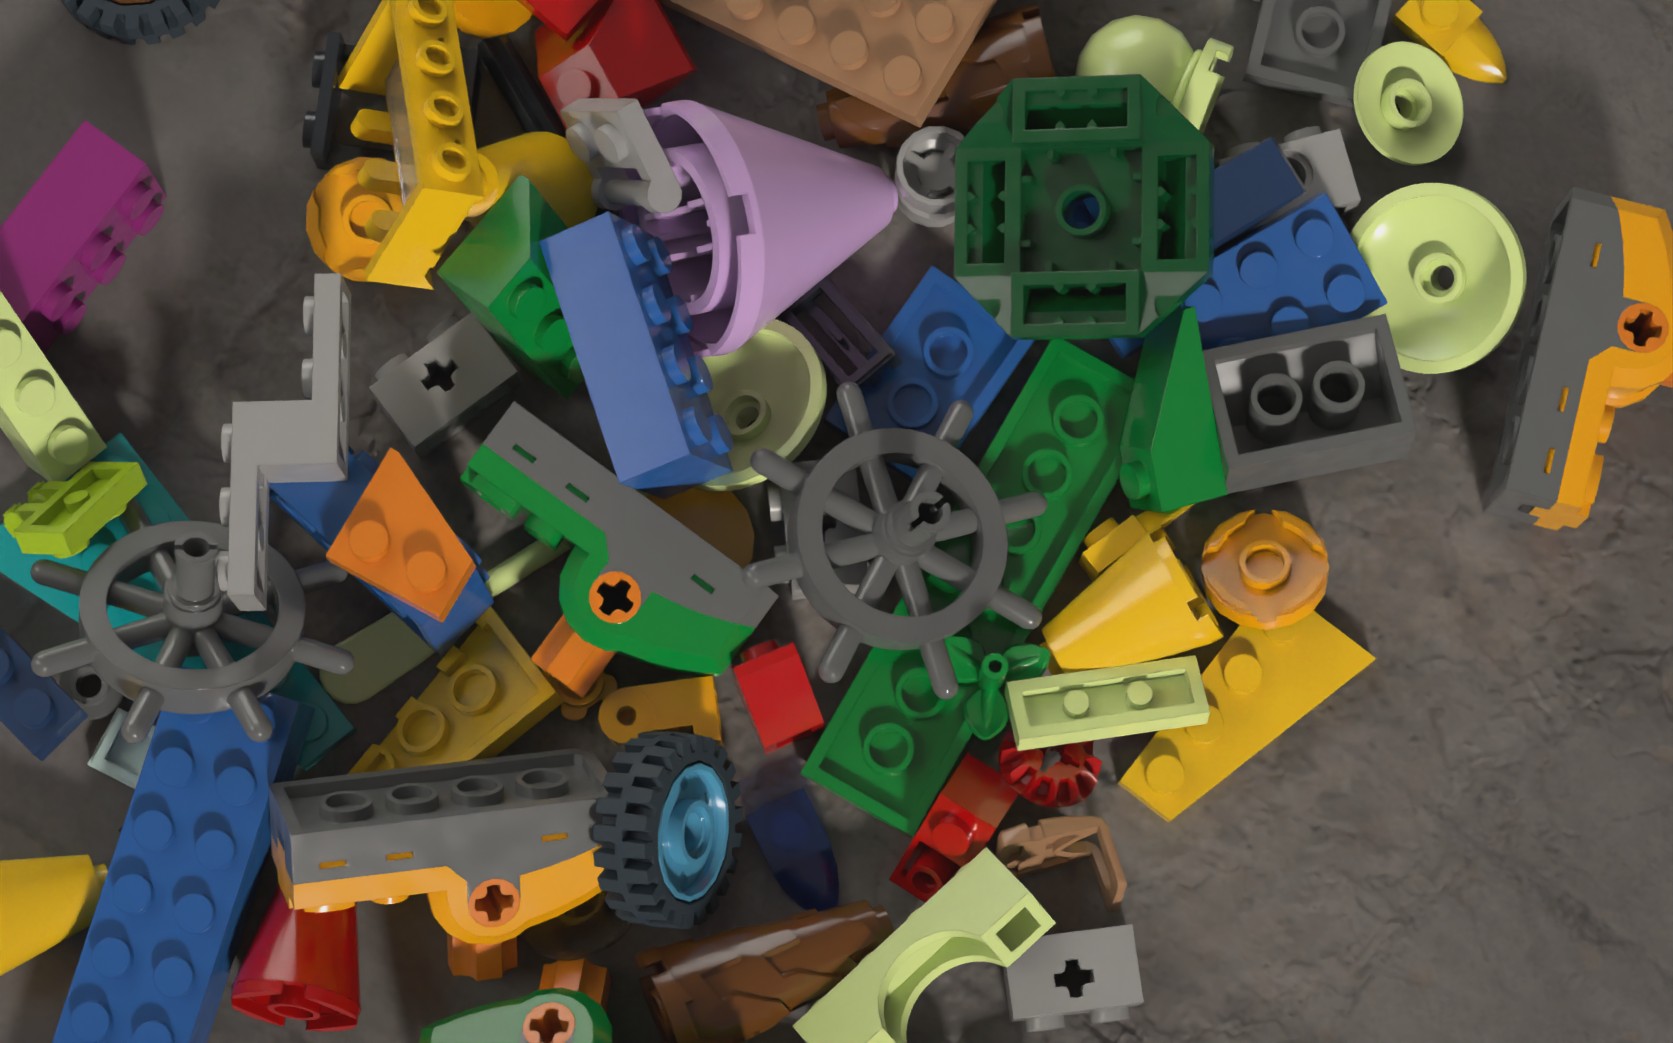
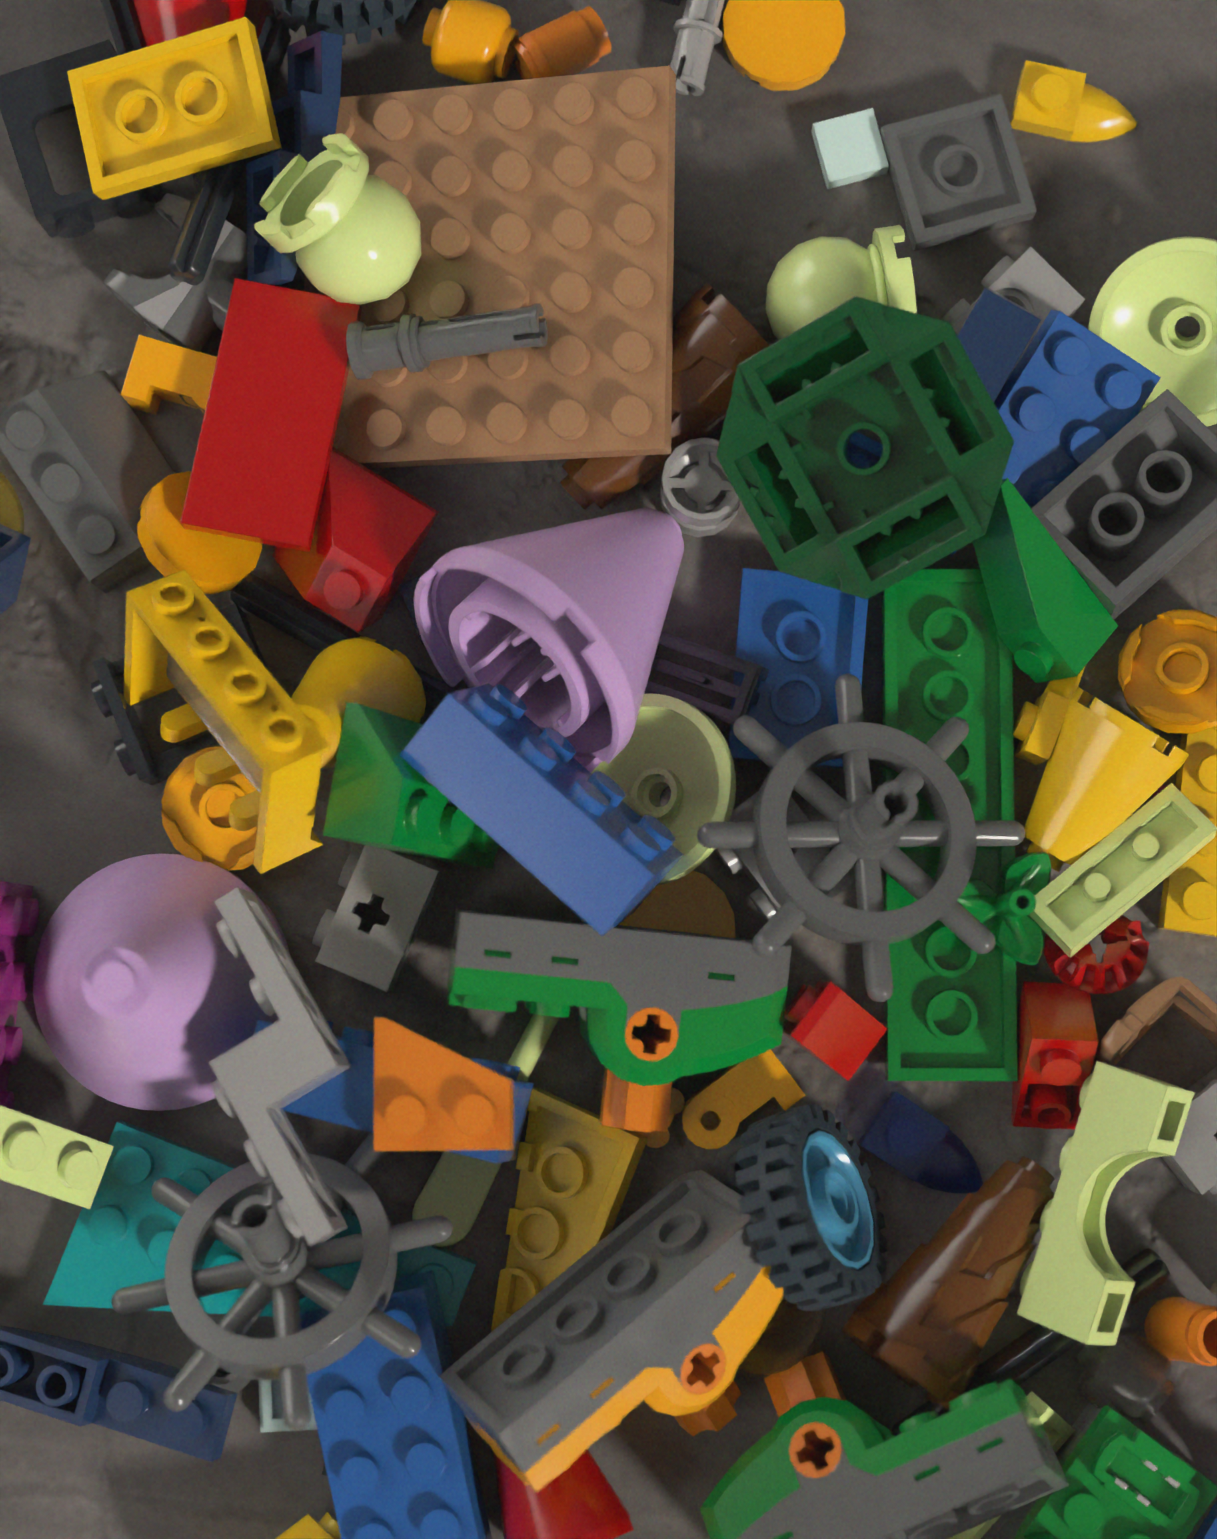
camera: 25 degrees left, 5 degrees up
(68, 513) = (117, 1227): lime hinge -> none
(210, 322) = (142, 984): none -> lavender cone
(618, 136) = (413, 615): light grey plate -> none
(1426, 98) = (1072, 190): yellowish green dish -> none

